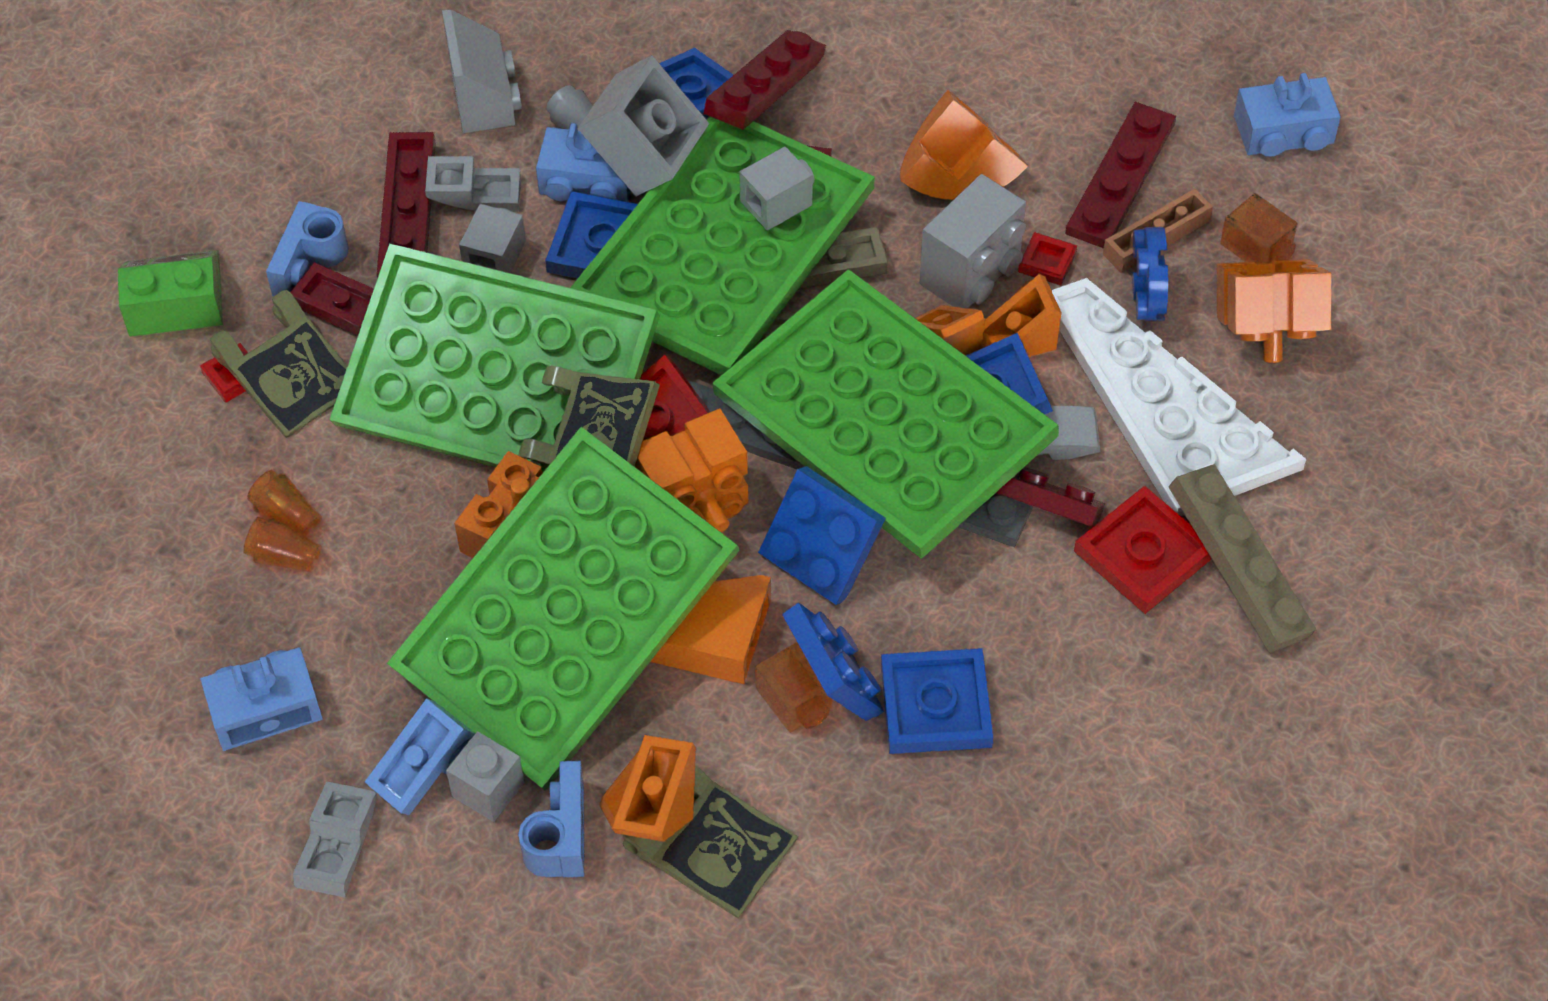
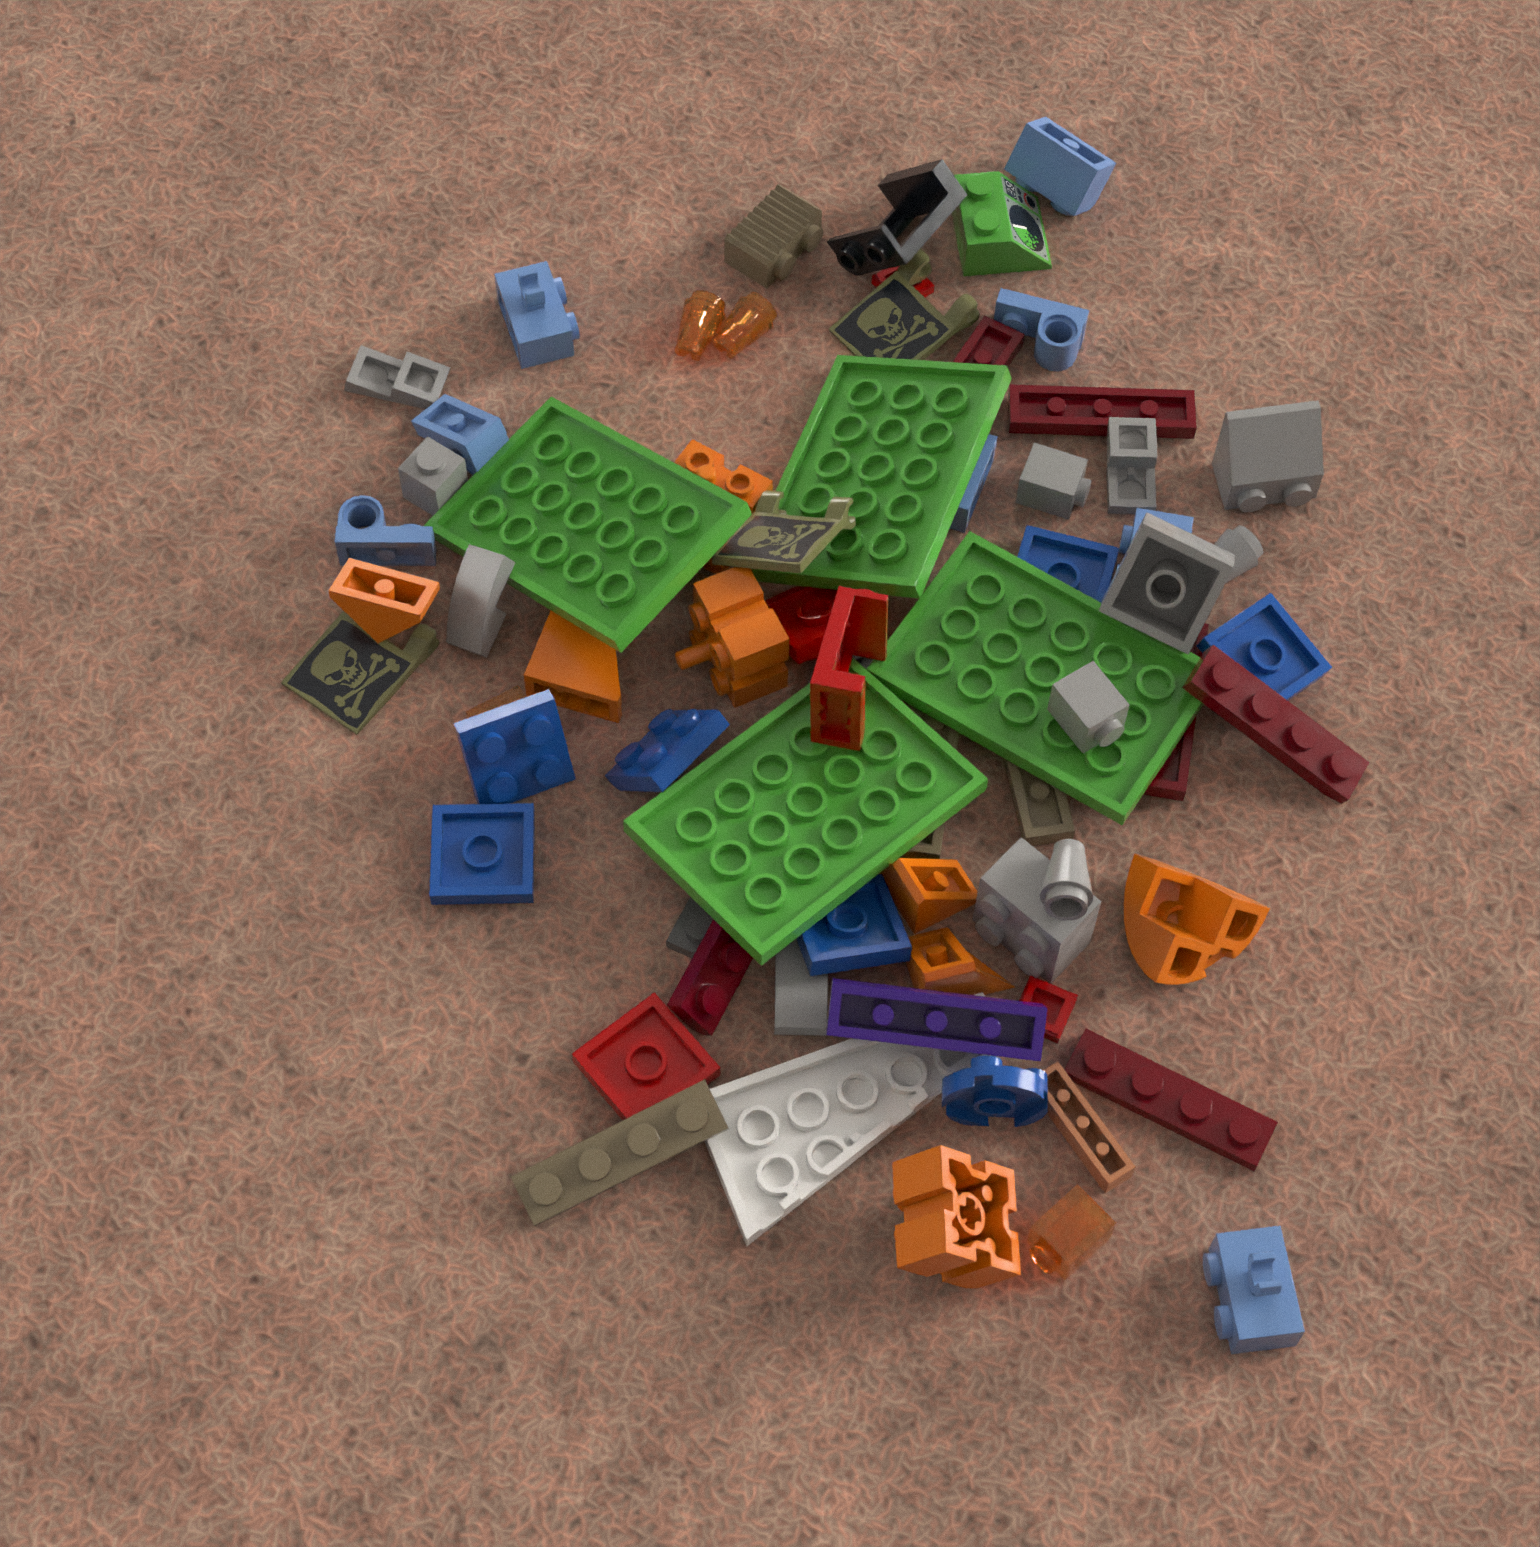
camera: 90 degrees right, 5 degrees up
(105, 228) = (1059, 166): none -> medium blue brick
(132, 341) = (912, 193): none -> black panel
(168, 479) = (773, 236): none -> dark tan brick
(647, 709) = (473, 610): none -> light grey slope
(801, 348) = (836, 696): none -> red panel
(974, 185) = (1067, 882): none -> light grey cone
(1096, 306) = (936, 1019): none -> dark purple brick

